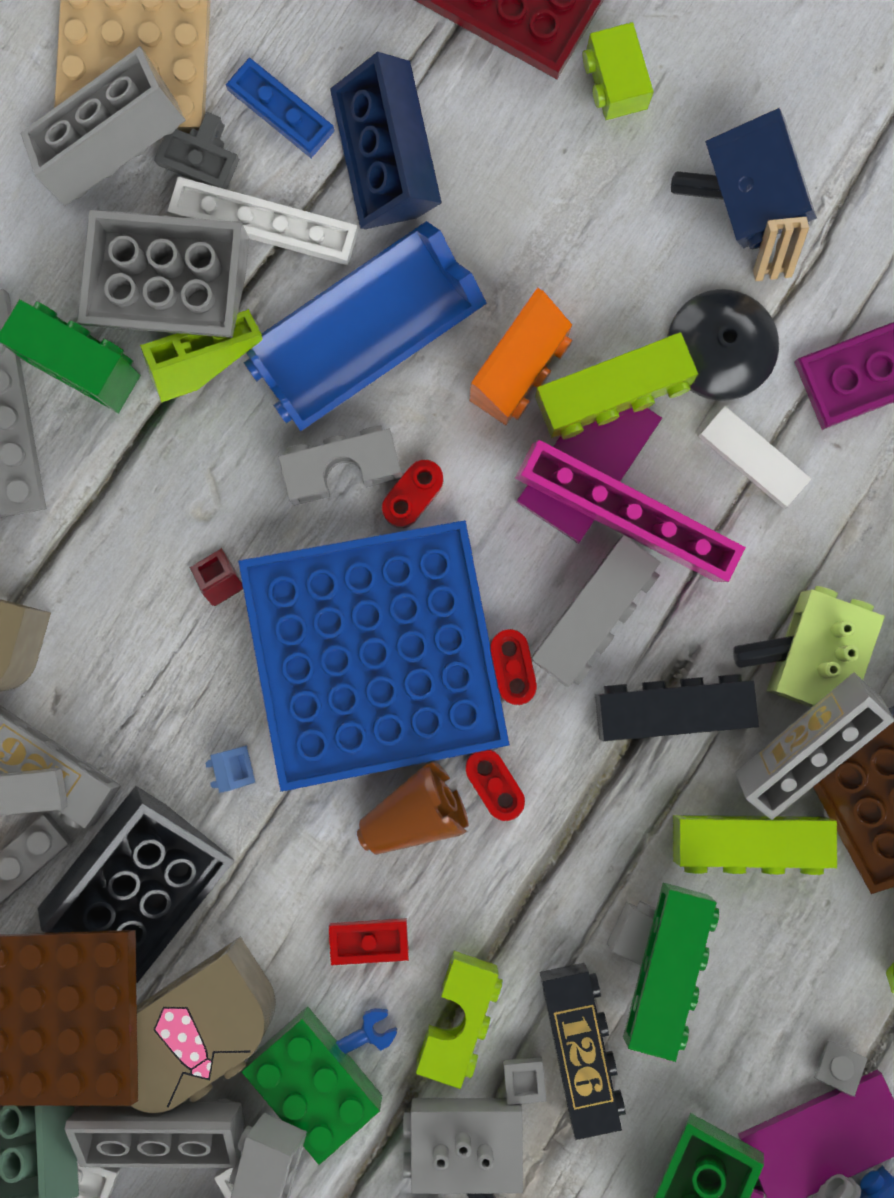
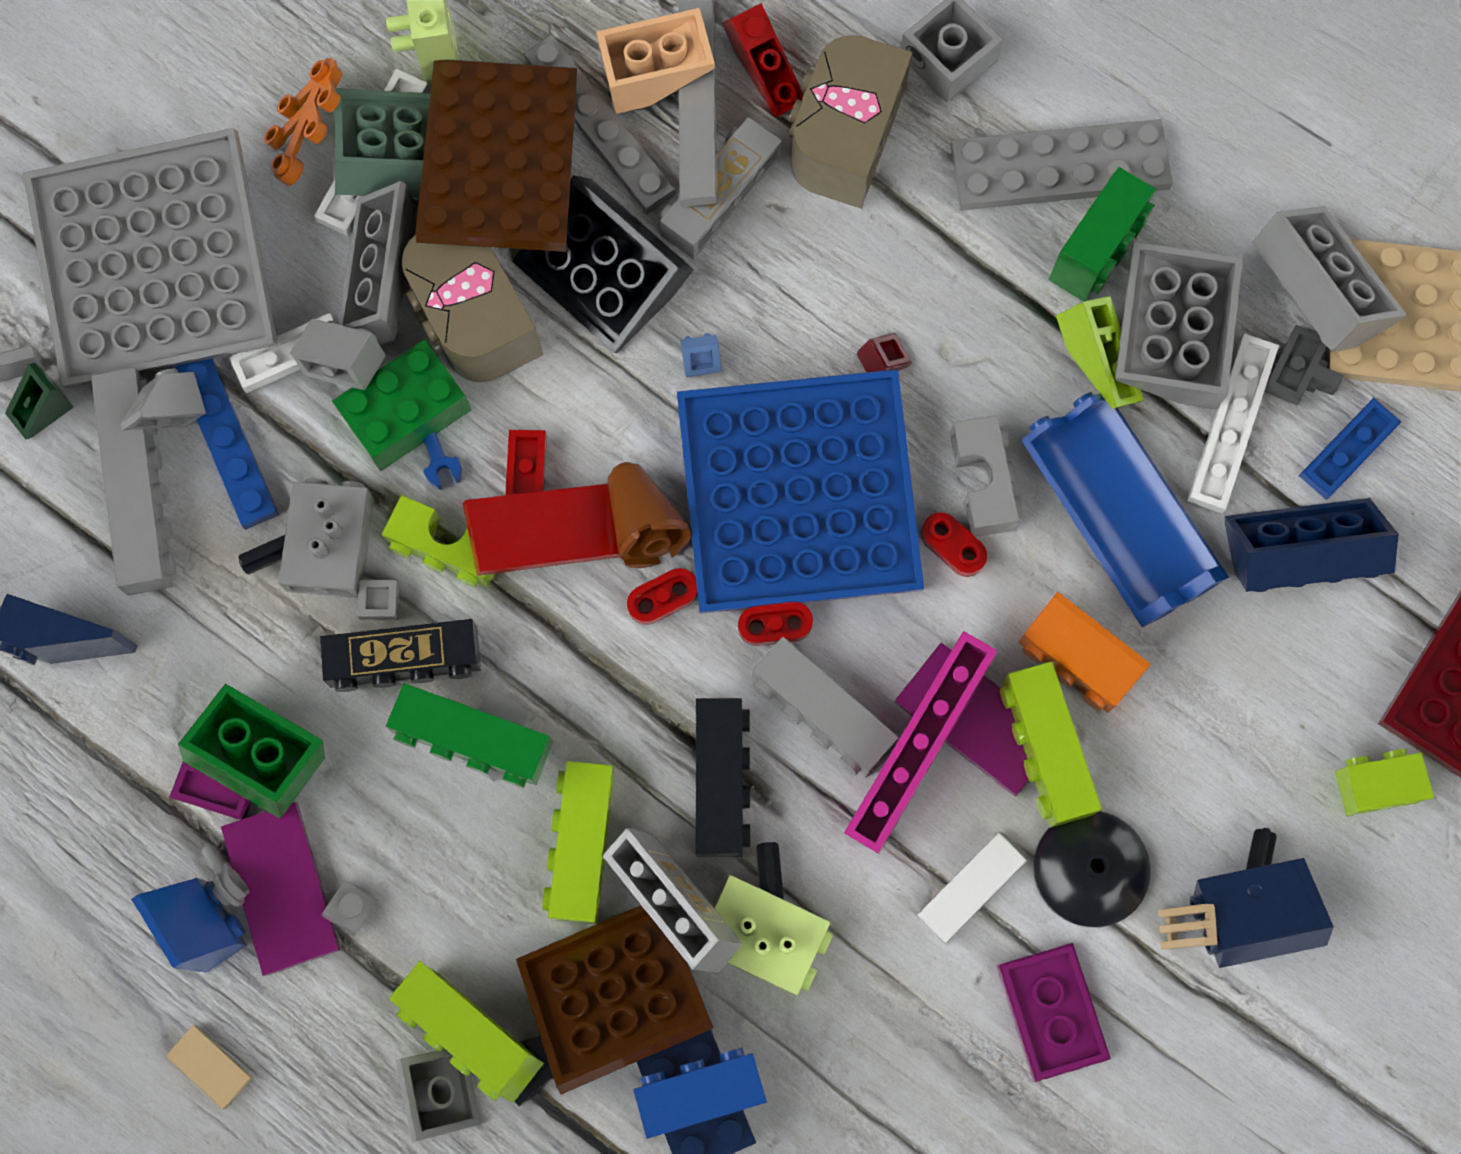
camera: 95 degrees right, 10 degrees down
(439, 921) = (541, 529): none -> red tile

